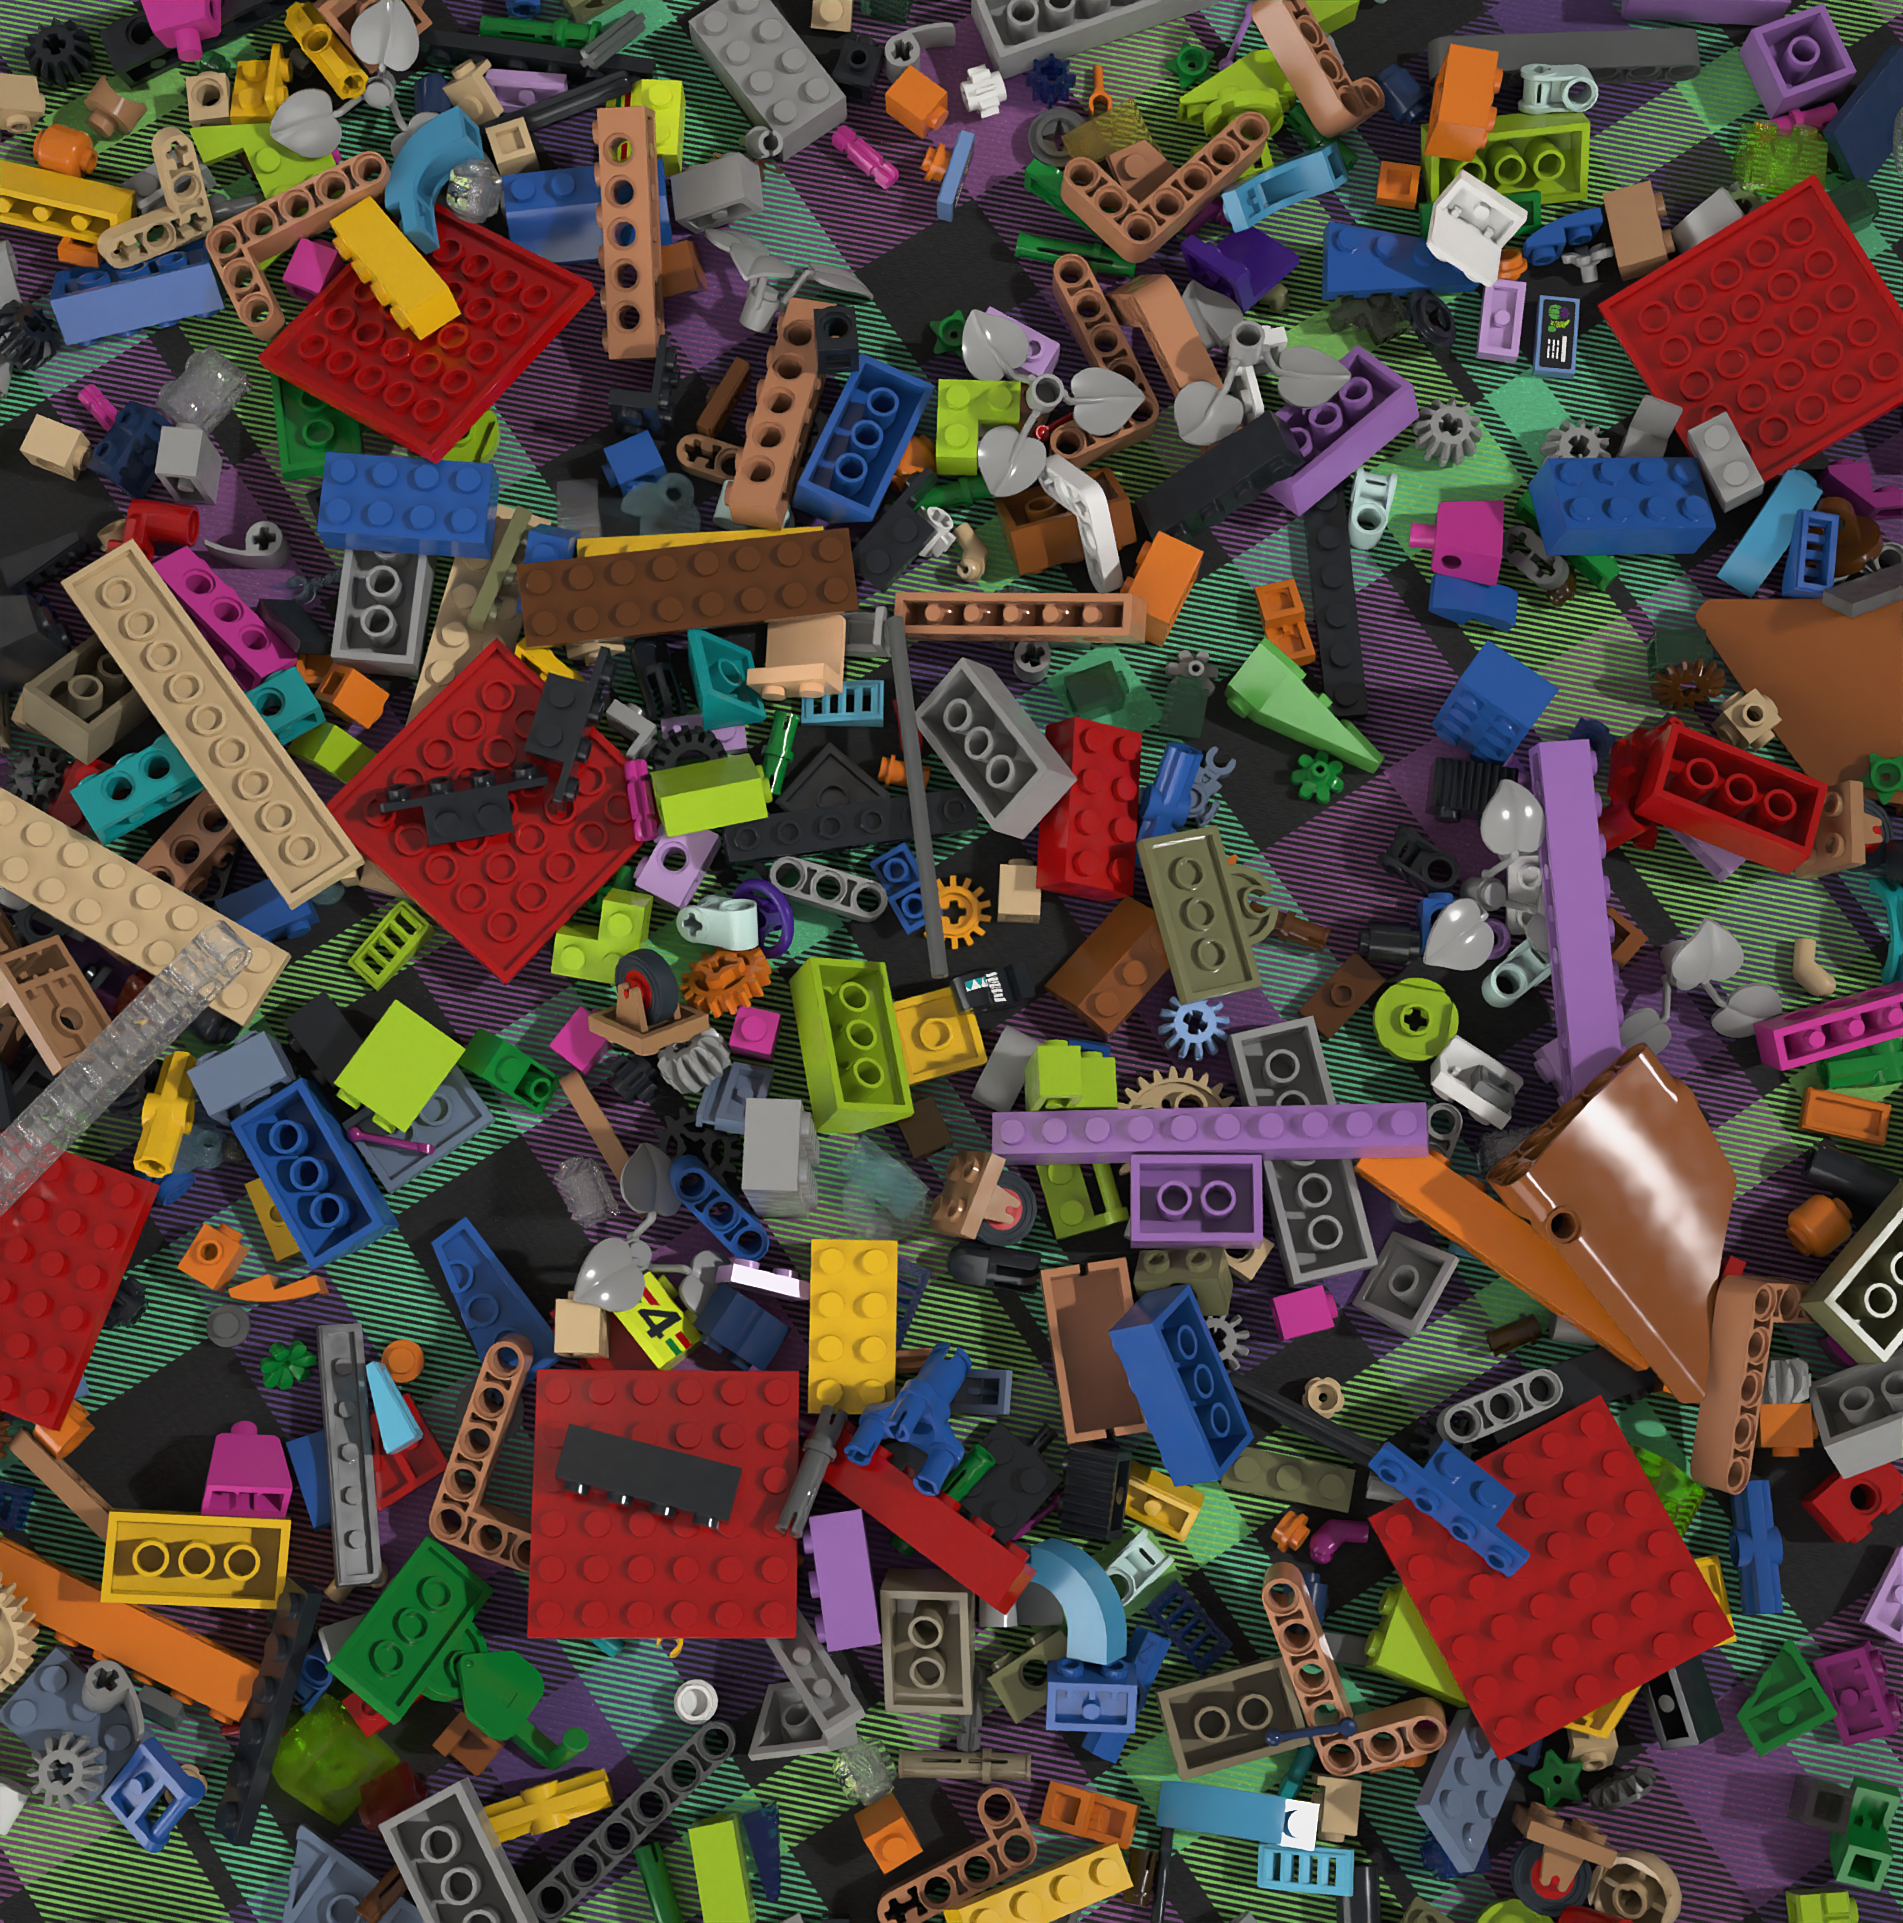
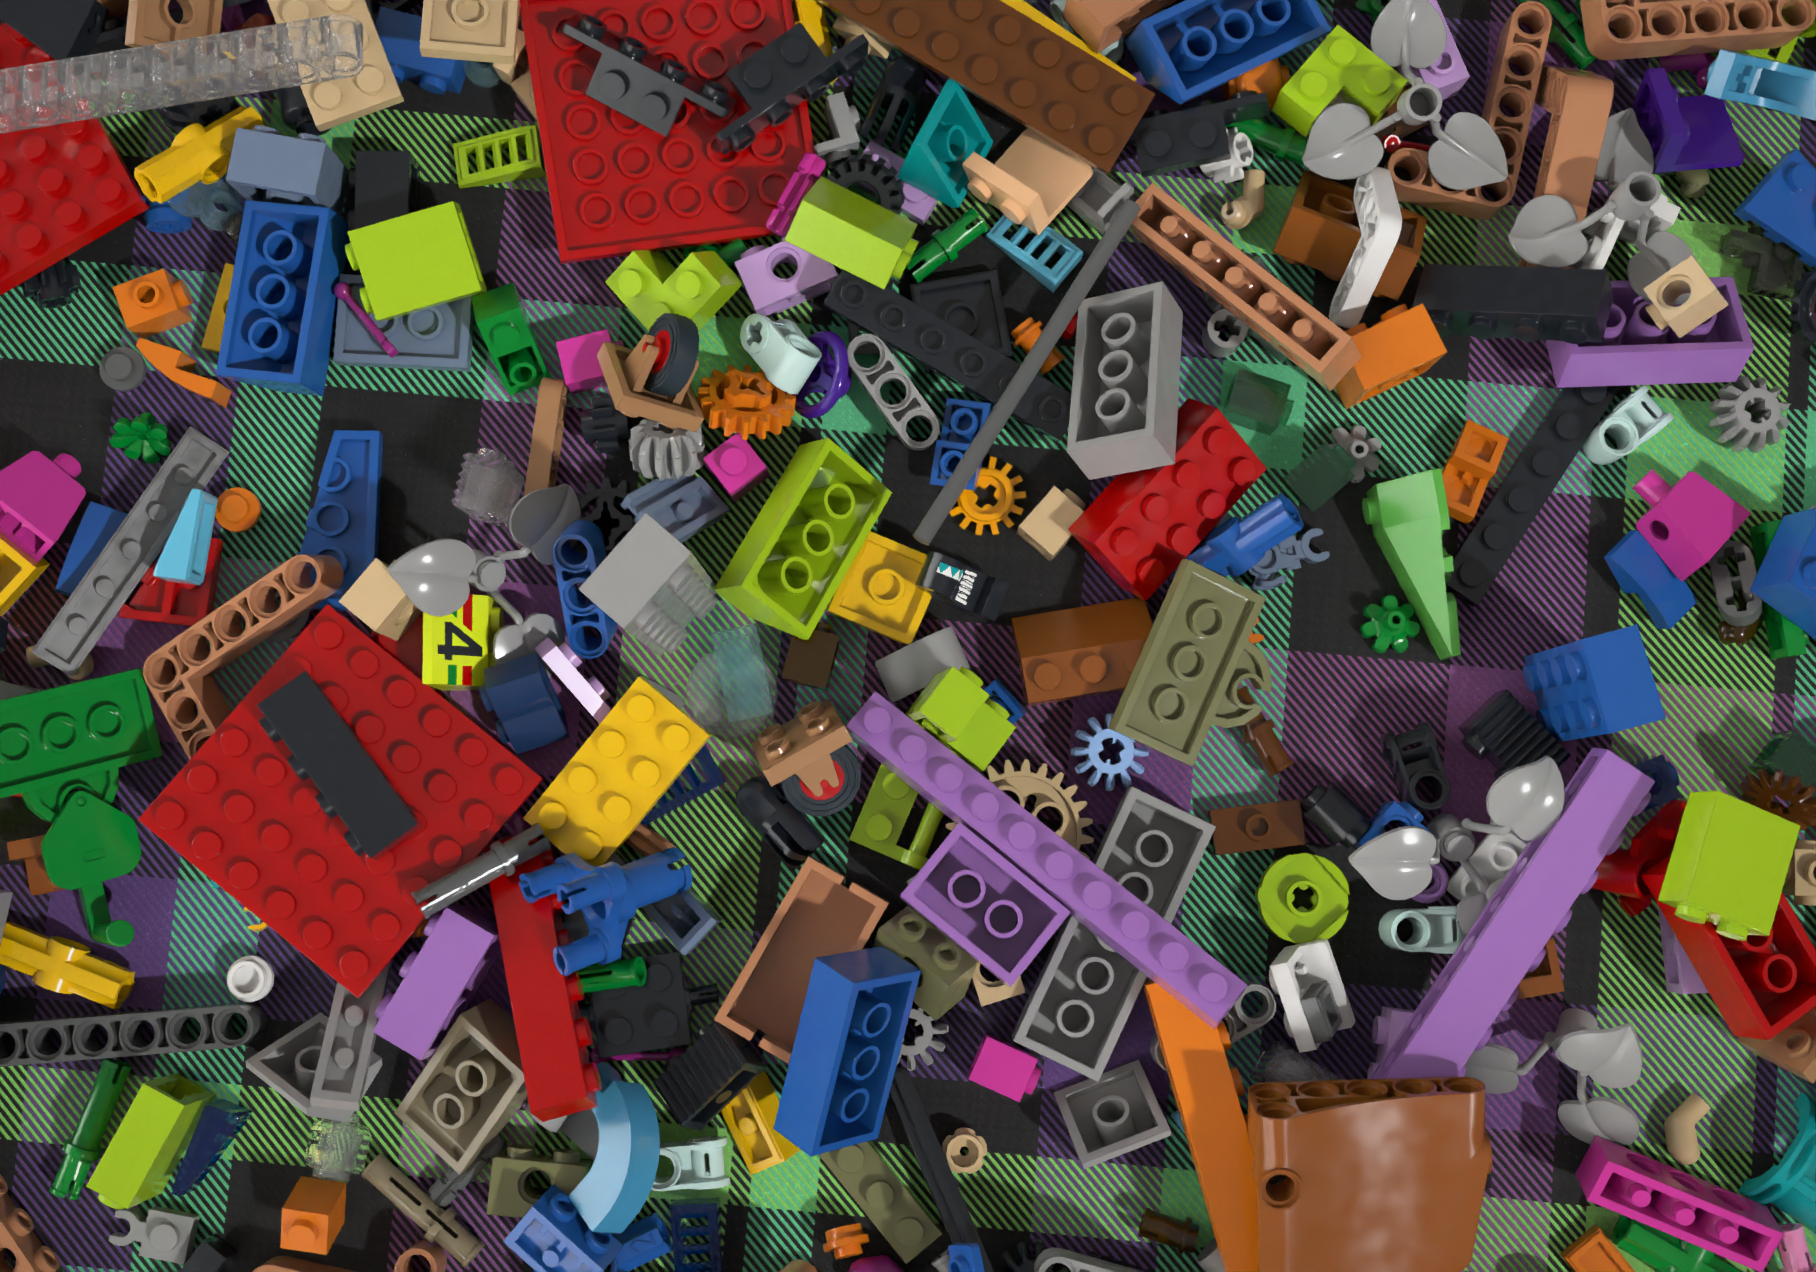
camera: 40 degrees right, 5 degrees up
(1353, 383) = (1683, 278): none -> tan brick
(1683, 756) = (1728, 864): none -> lime brick

